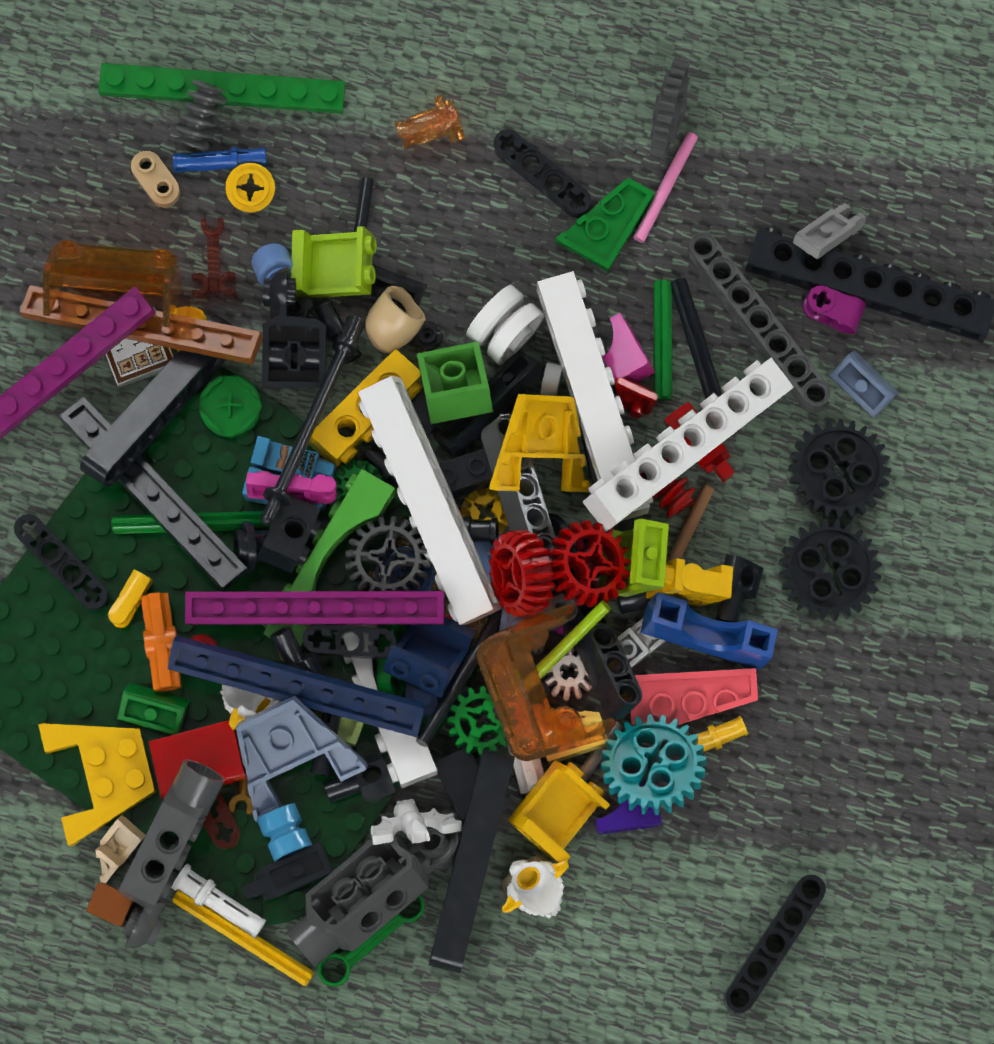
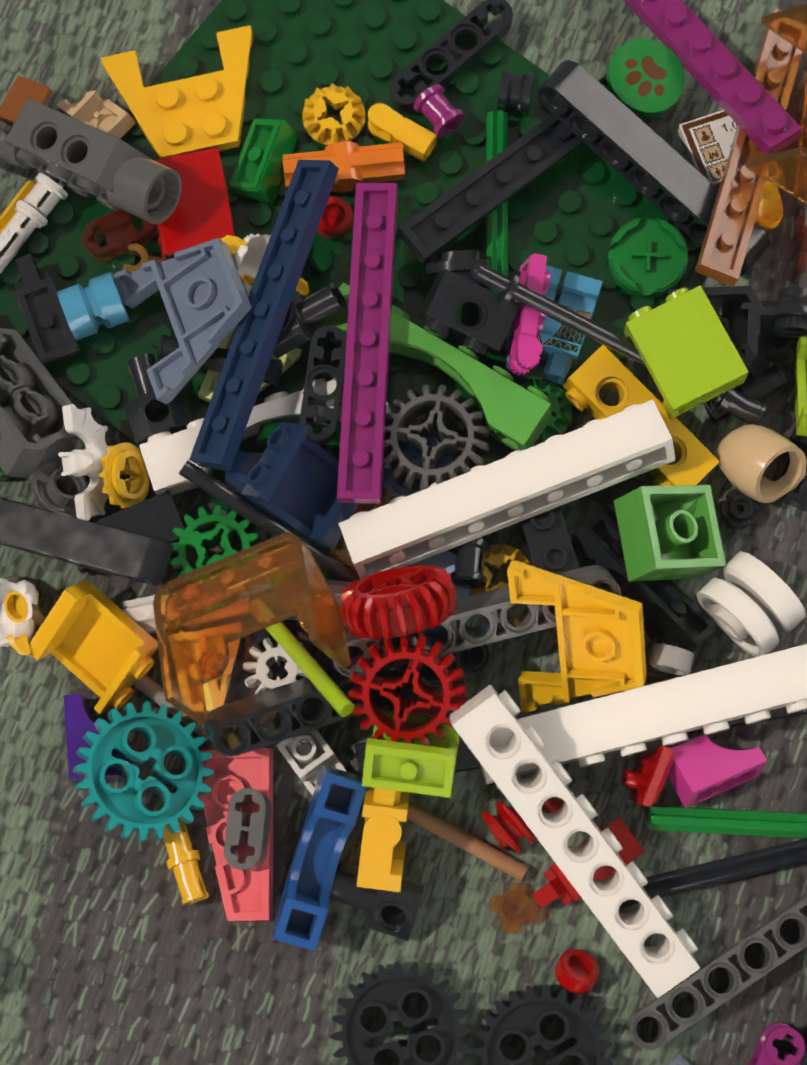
camera: 100 degrees right, 0 degrees up
(84, 408) = (645, 77): none -> green tile
(95, 509) = (515, 91): none -> black wheel
(112, 569) = (438, 110): none -> magenta bush
(129, 656) = (328, 130): none -> yellow gear
(316, 370) = (686, 350): none -> lime panel
(422, 798) = (129, 460): none -> yellow gear
(691, 695) = (237, 829): none -> dark grey beam
(743, 494) = (502, 904): none -> clear orange plate
(777, 446) = (577, 971): none -> red tile

